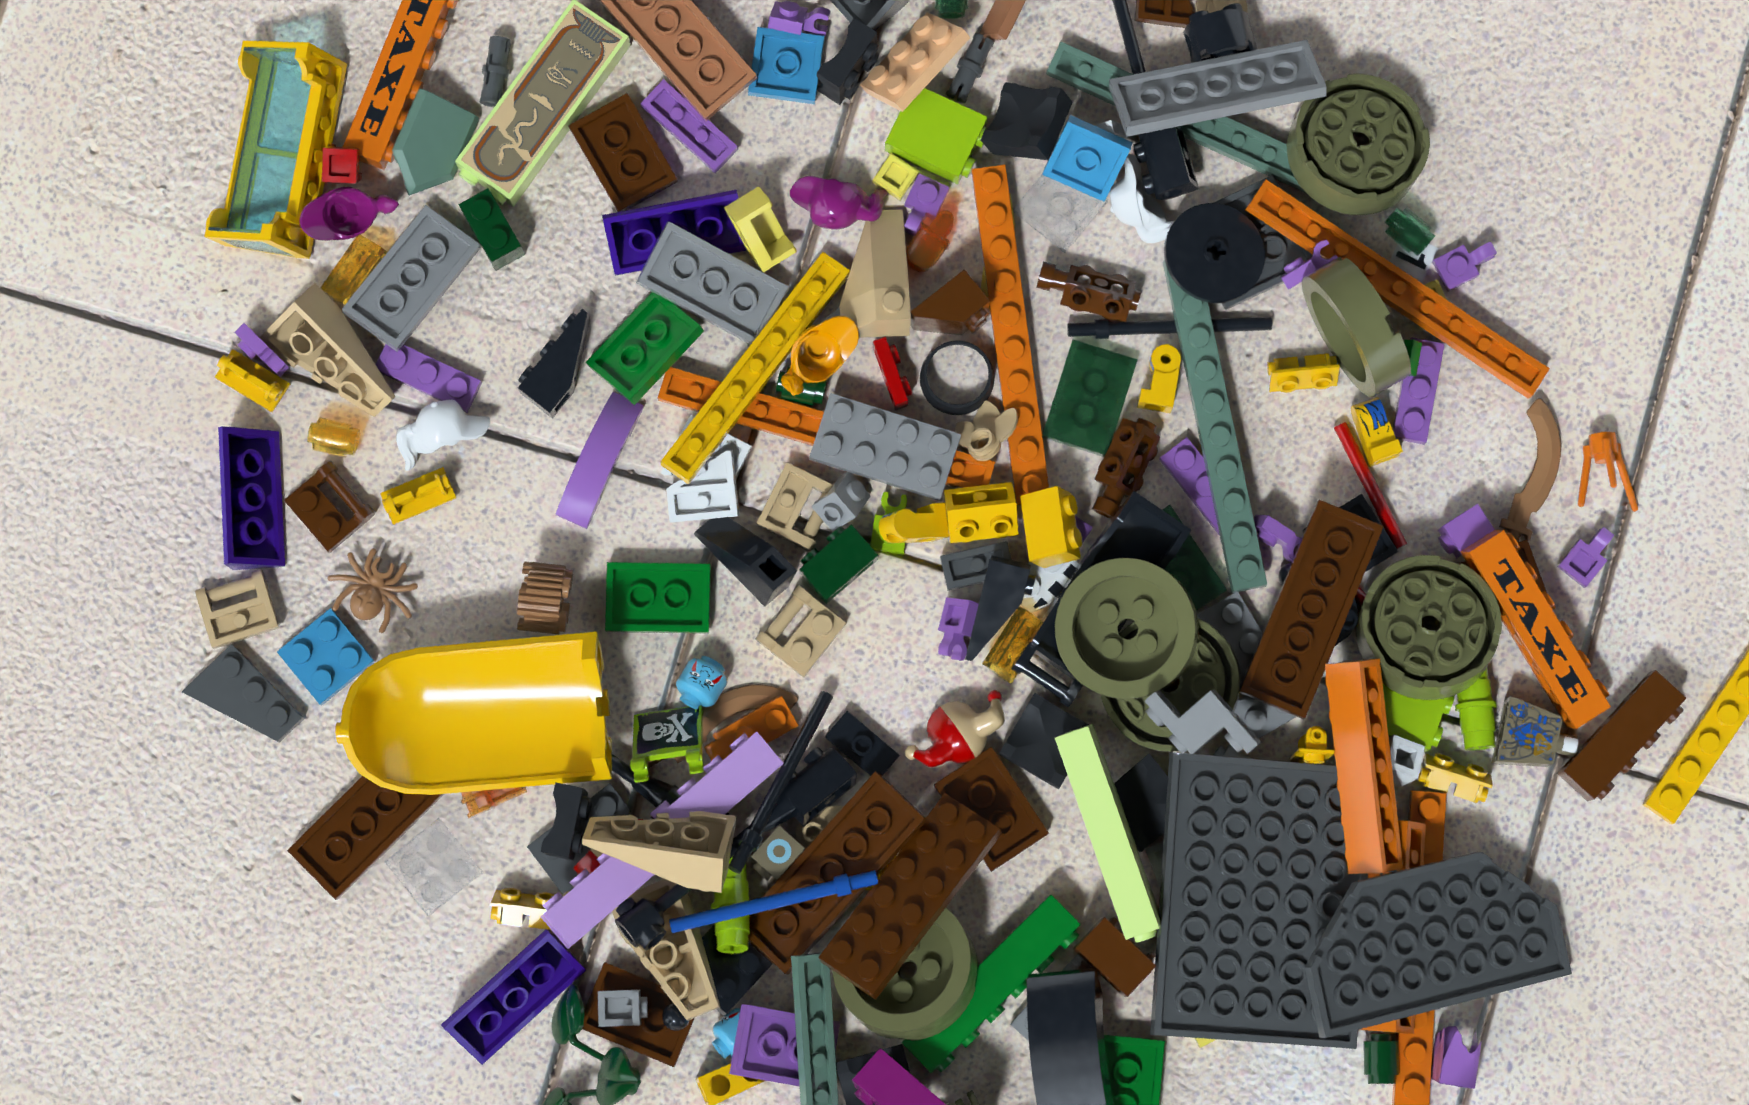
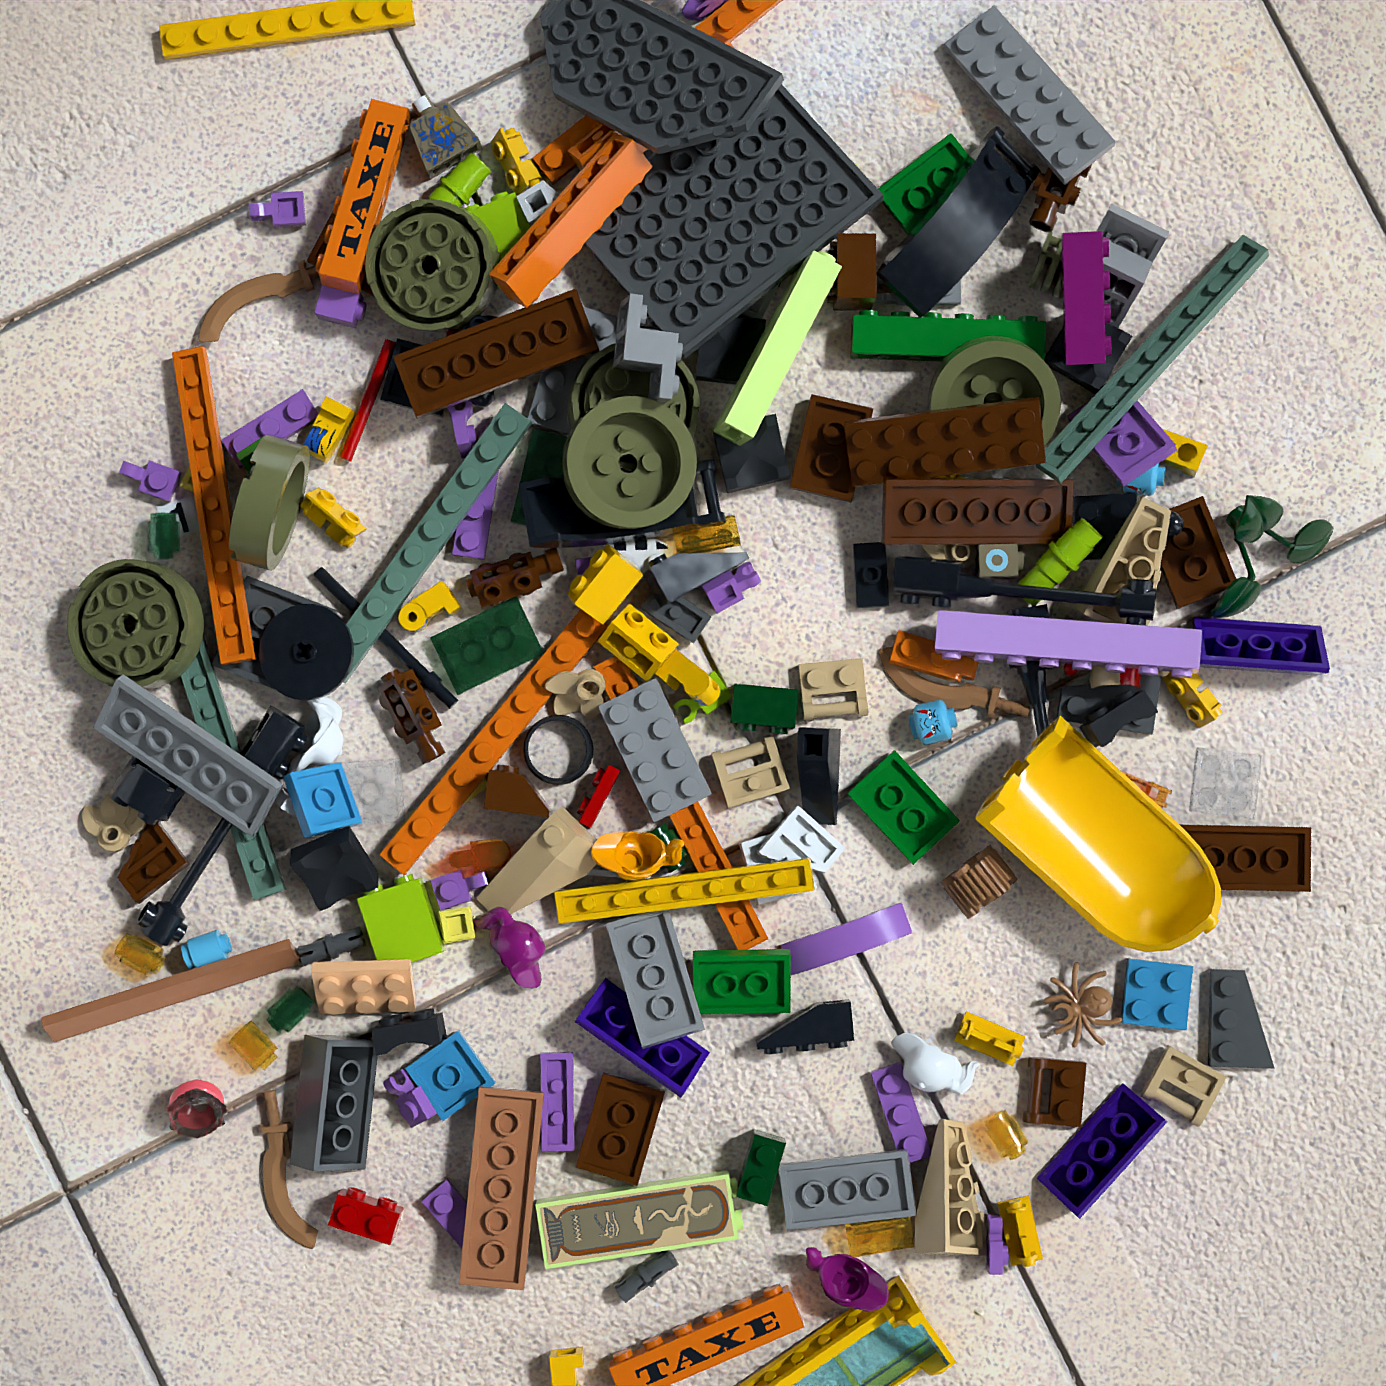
camera: 135 degrees left, 5 degrees up
(340, 165) = (817, 1316): red panel -> none
(432, 141) = (738, 1269): sand green tile -> none
(621, 1008) = (1200, 564): light grey bracket -> none
(666, 736) = (993, 709): flag -> none
(682, 850) = (1068, 621): tan wedge -> none
(751, 837) = (1011, 583): black bar -> none
(759, 229) = (585, 979): light yellow panel -> none
(840, 885) = (983, 493): blue bar -> none
(842, 501) = (719, 743): light grey bracket -> none
(958, 732) = (801, 517): piece -> none
(1298, 268) = (264, 580): medium lavender plate -> none
(1312, 747) = (588, 270): yellow hinge -> none
(1381, 1059) = (753, 36): dark green brick -> none
(1605, 450) = (194, 265): orange plant -> none
(1622, 735) = (382, 75): reddish brown brick -> none

